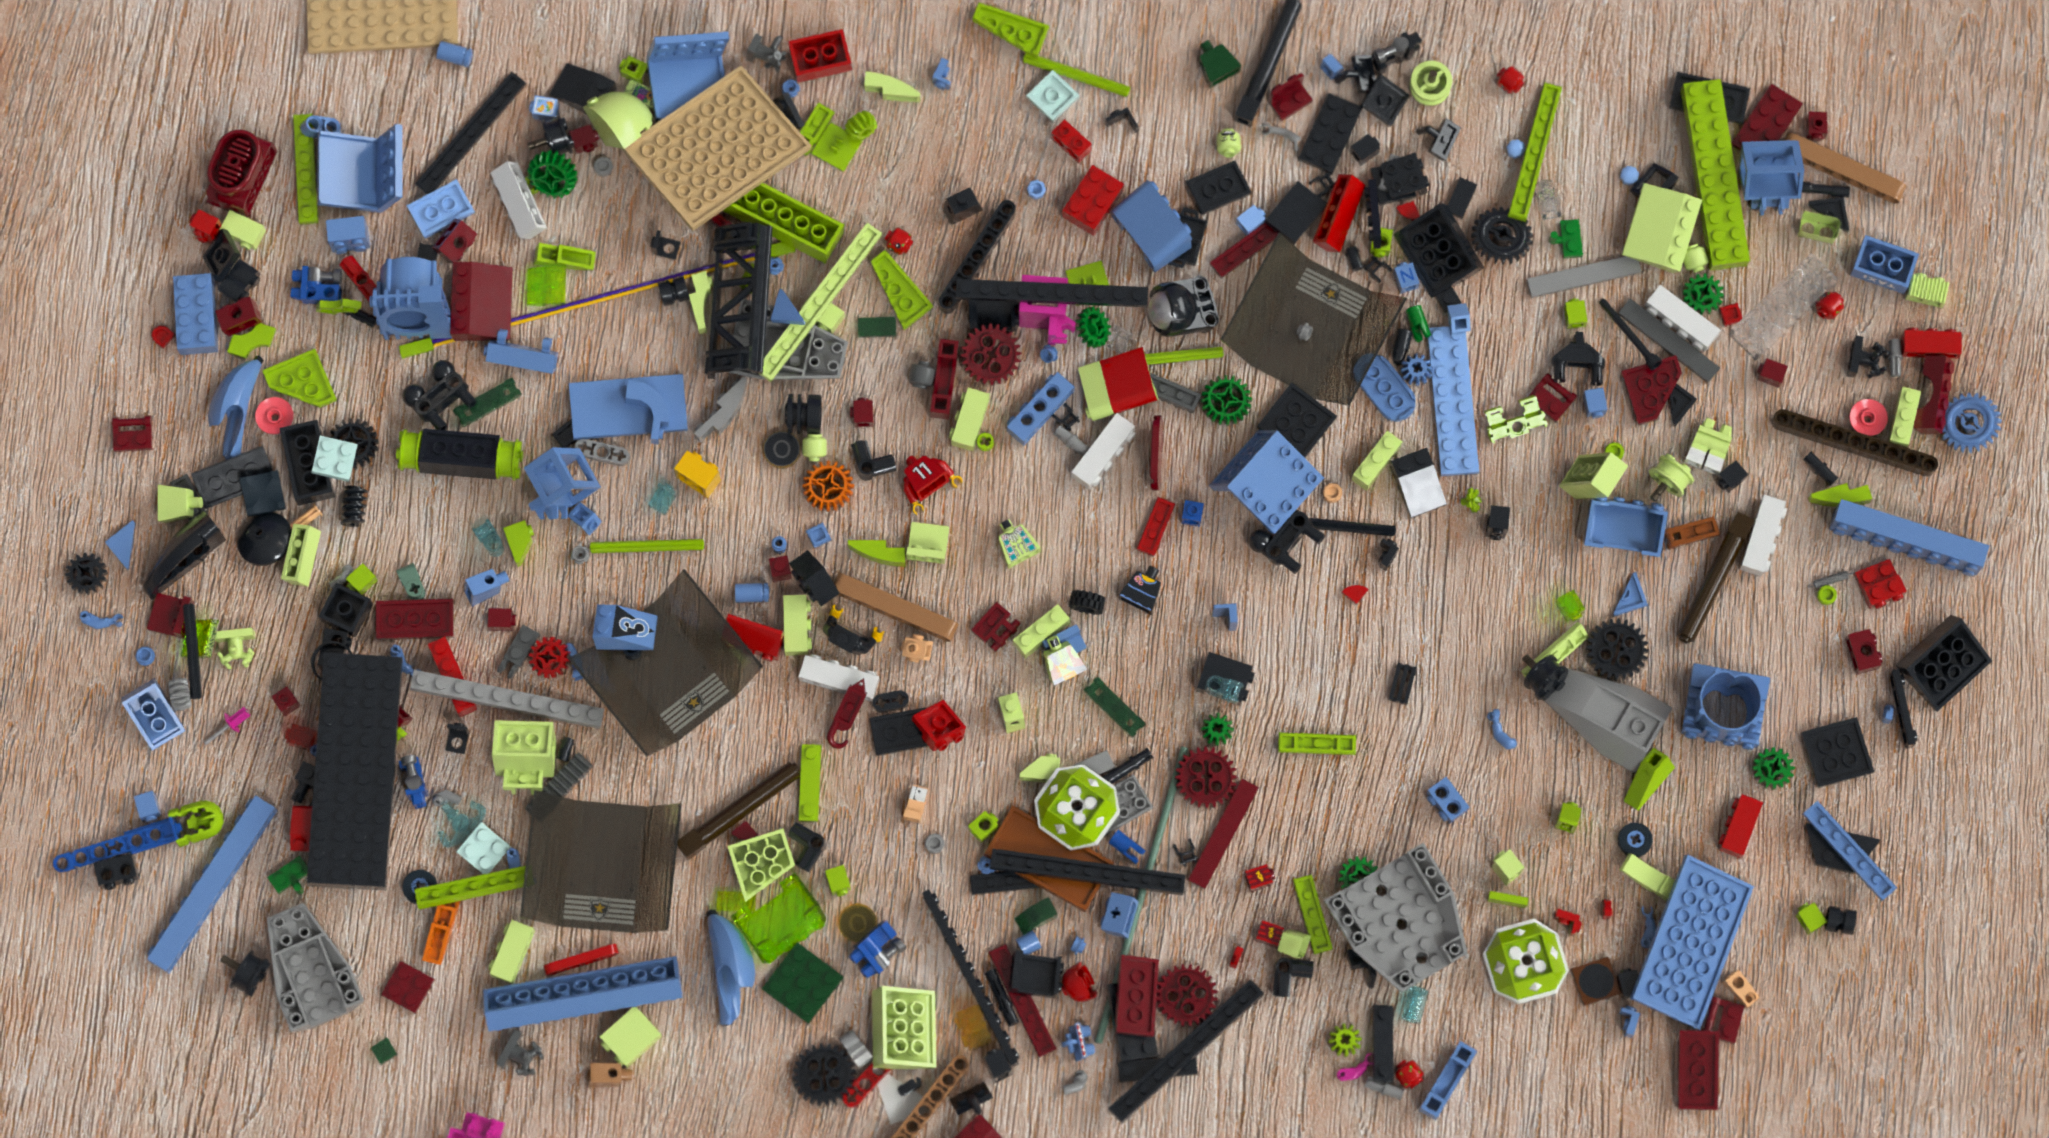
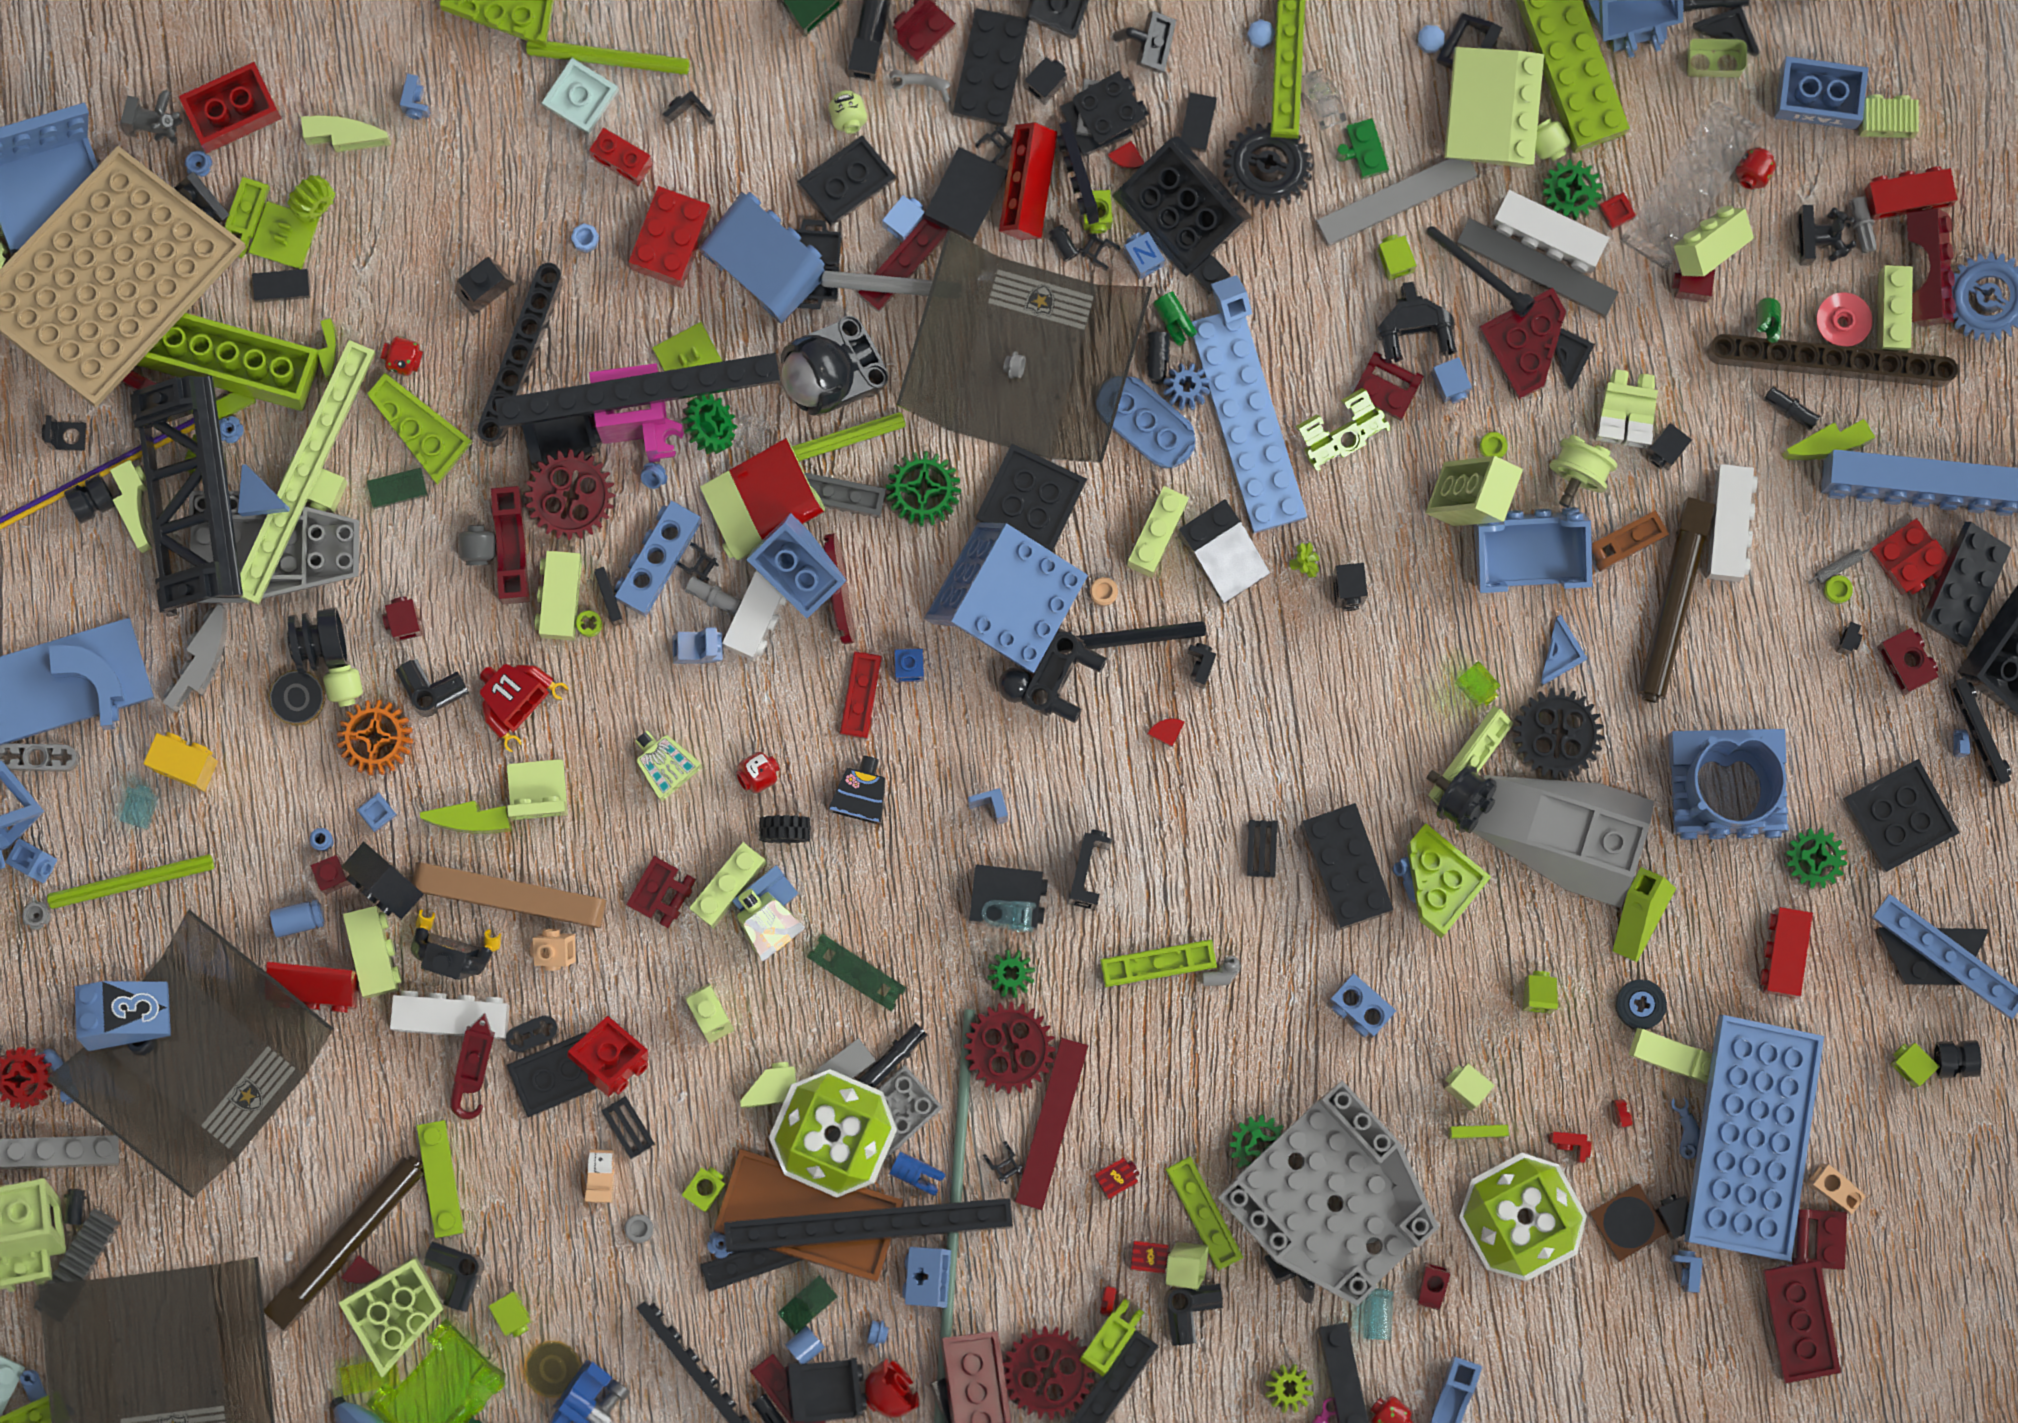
camera: 15 degrees left, 5 degrees up
(828, 179) = (281, 285): none -> black tile
(851, 230) = (329, 355): none -> lime slope
(936, 760) = (616, 1107): none -> black tile
(1002, 426) = (608, 596): none -> black tile
(1054, 471) = (697, 647): none -> medium blue brick
(1076, 562) = (757, 772): none -> head
(1132, 430) = (797, 566): none -> medium blue slope
(1223, 258) = (876, 283): none -> light grey axle
(1232, 981) = (1110, 1339): none -> lime hinge
(1278, 689) = (1079, 896): none -> black panel
(1360, 761) = (1224, 975): none -> light grey arm
(1455, 995) = (1433, 1286): none -> dark red leg
(1456, 706) = (1346, 867): none -> black brick
(1518, 728) = (1442, 880): none -> lime plate
(1790, 346) = (1713, 241): none -> yellowish green brick
(1817, 405) = (1769, 318): none -> green hinge
(1827, 629) = (1850, 639): none -> black plate
(1913, 609) = (1965, 584): none -> black plate

